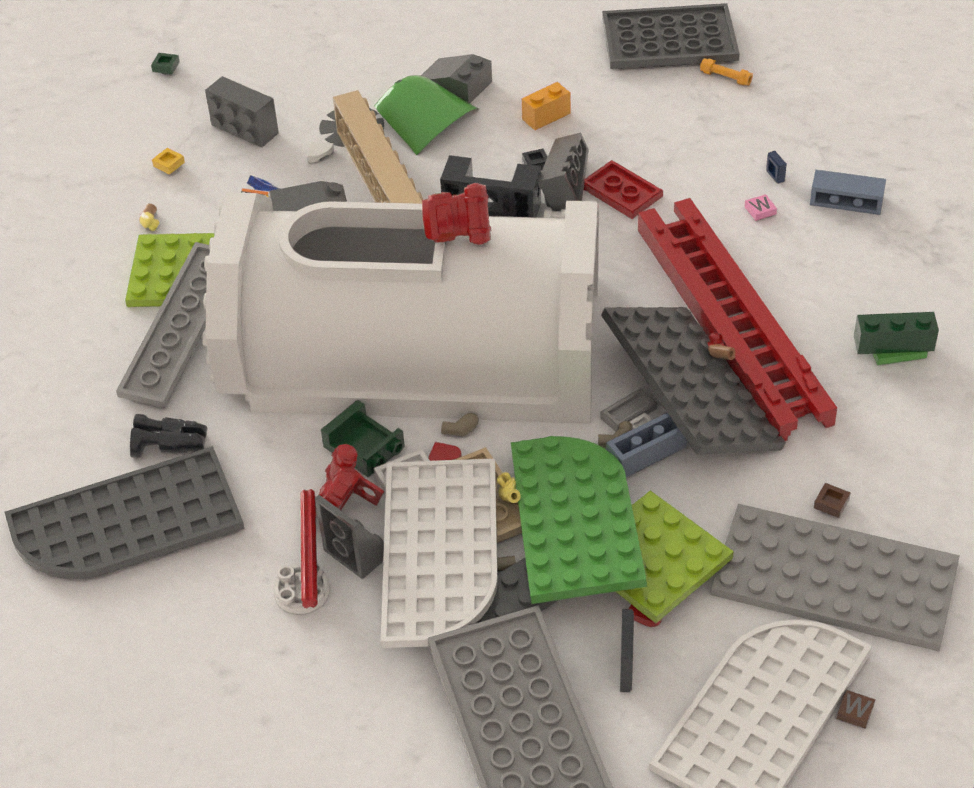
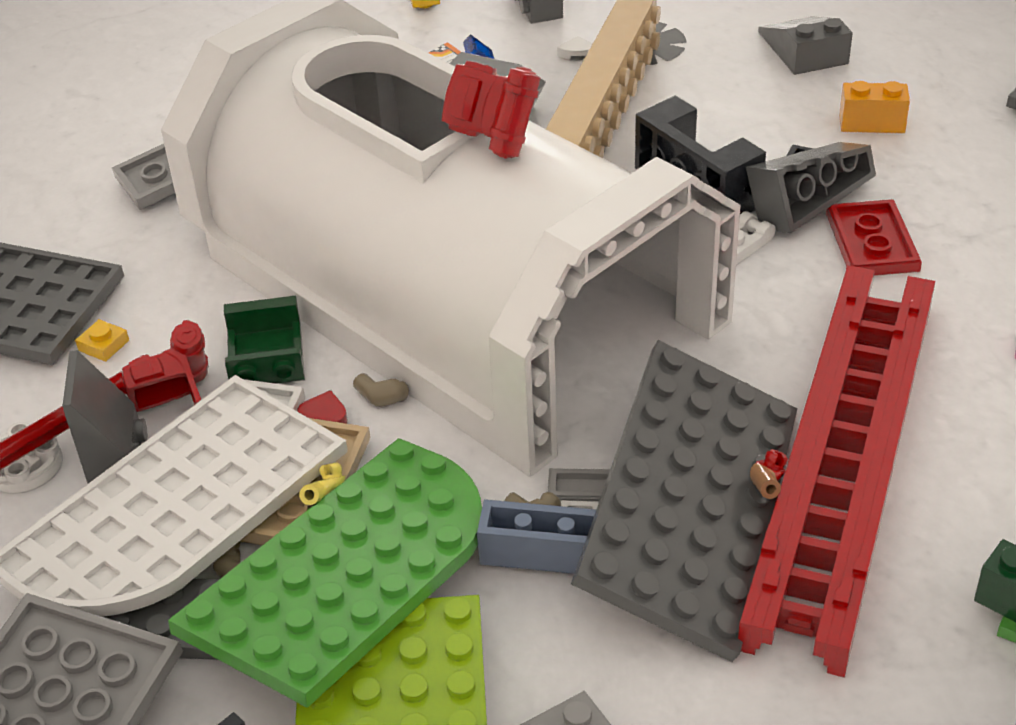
camera: 40 degrees right, 5 degrees down
(174, 435) = (96, 230): black piece -> none
(255, 496) = (102, 340): none -> yellow plate
(420, 109) = (725, 47): bright green piece -> none

